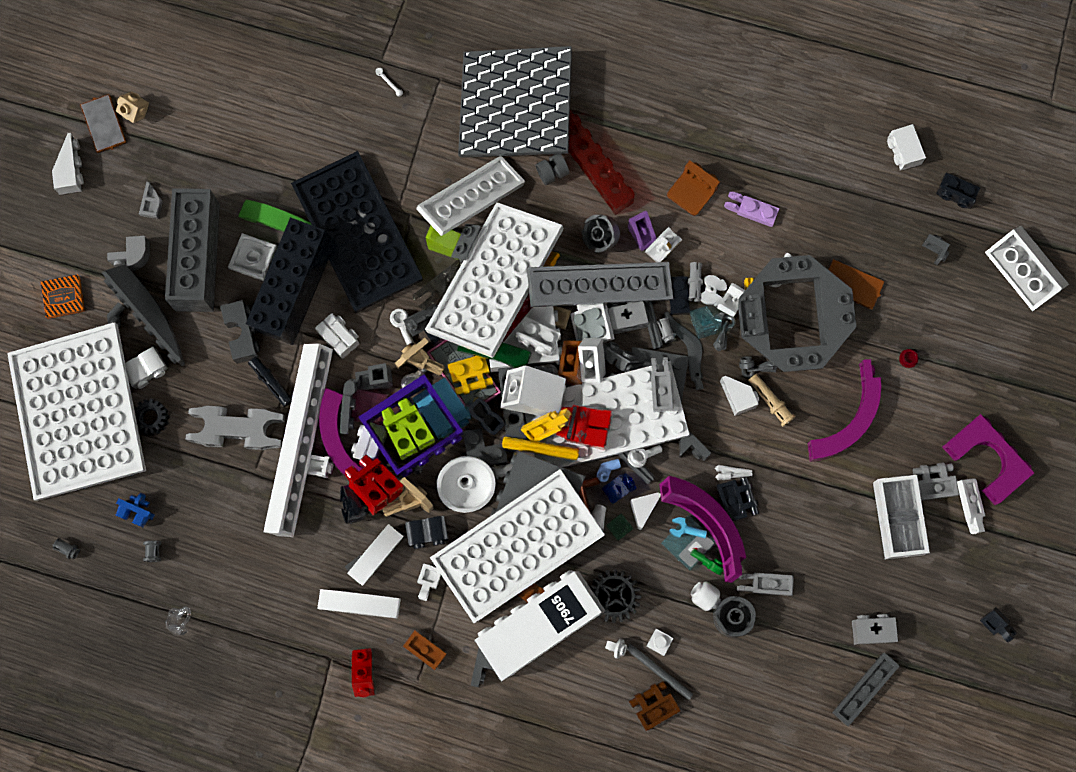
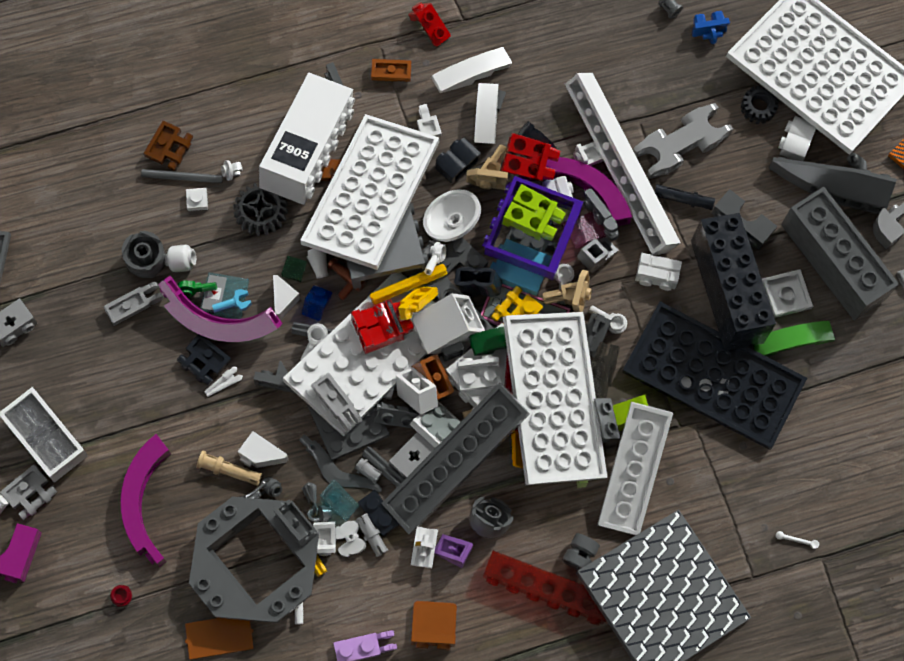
camera: 140 degrees right, 5 degrees down
(499, 458) = (437, 255): none -> white plate
(605, 469) = (340, 311): light blue arm -> none

